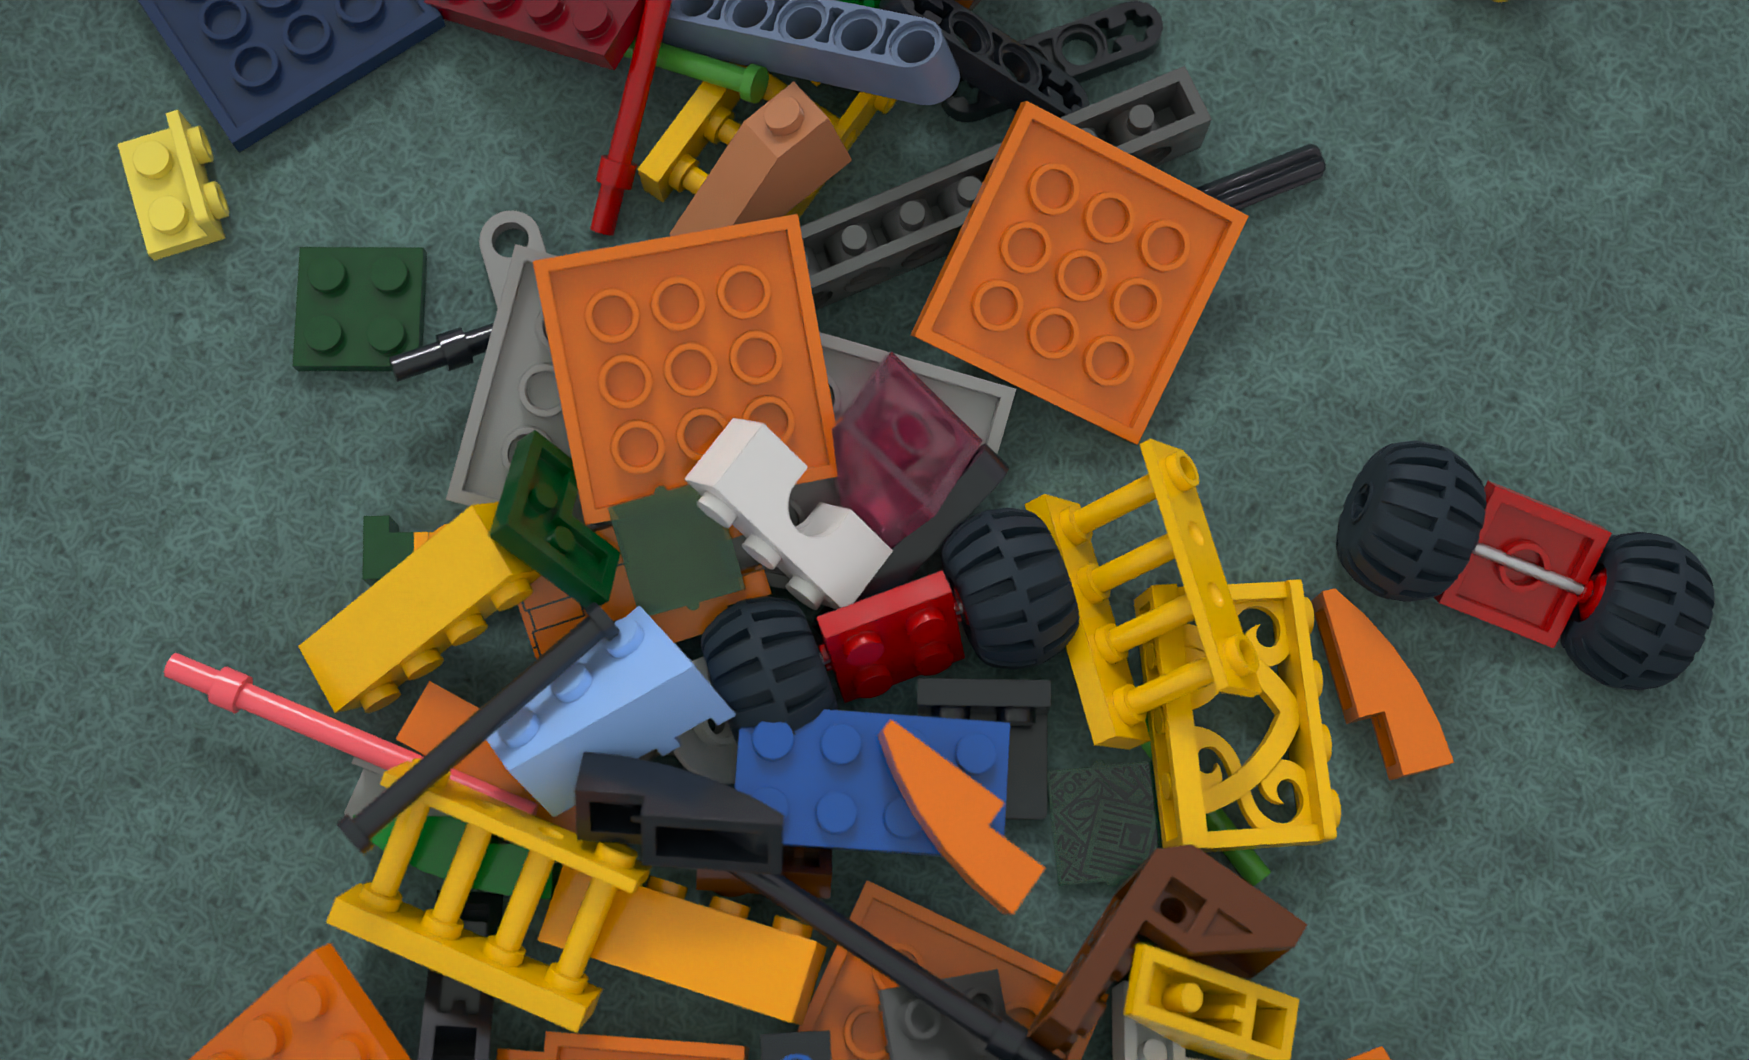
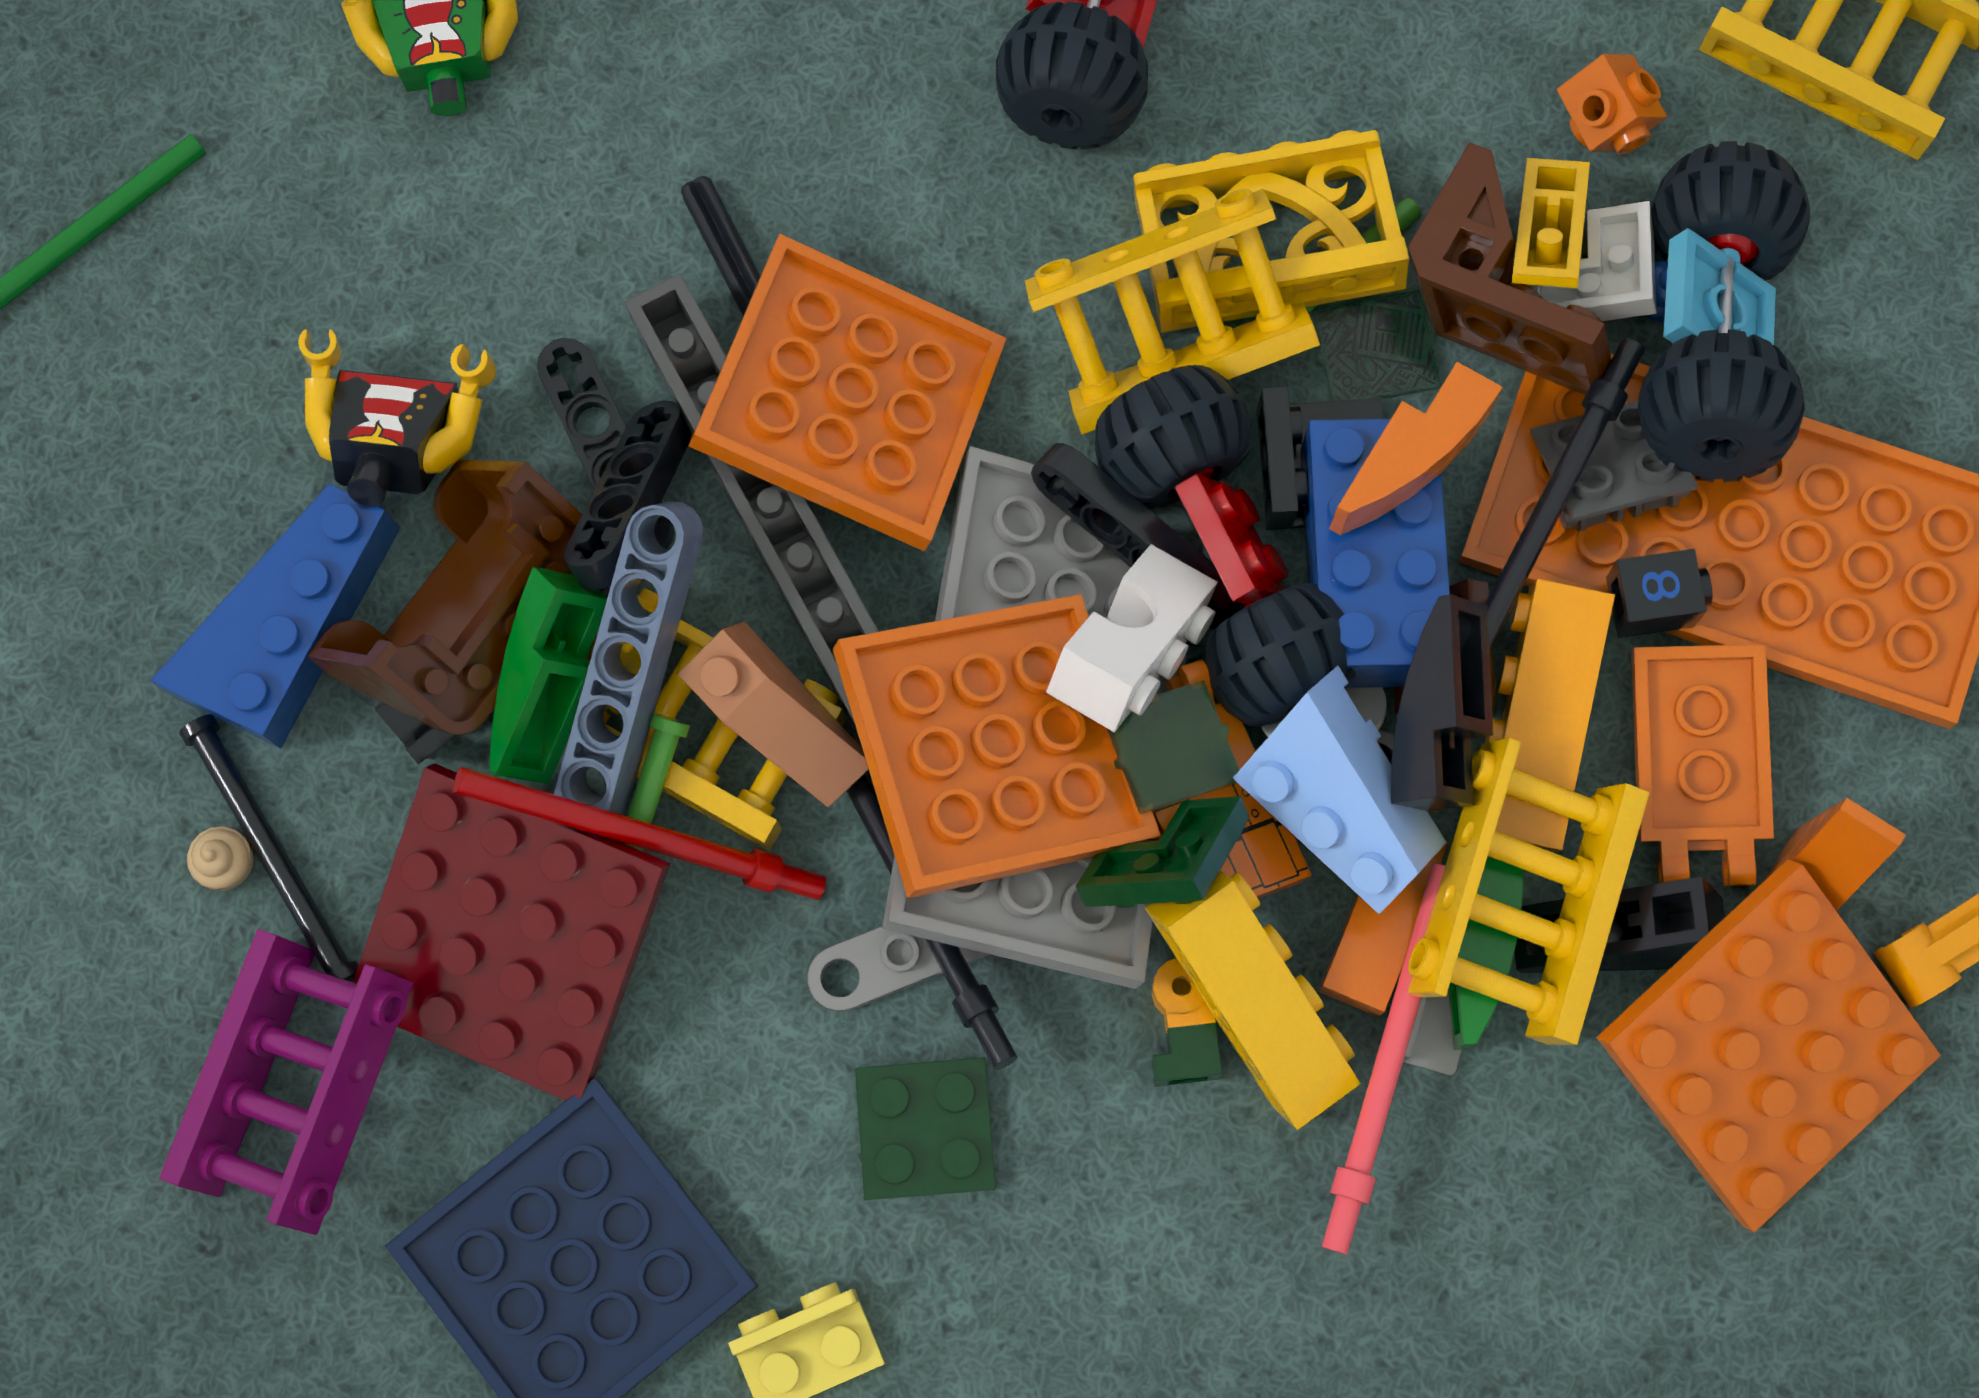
camera: 90 degrees left, 0 degrees up
(477, 728) = (1381, 902): black bar -> none
(899, 451) = (1055, 539): clear pink slope -> none
(1379, 686) = (1229, 104): orange slope -> none

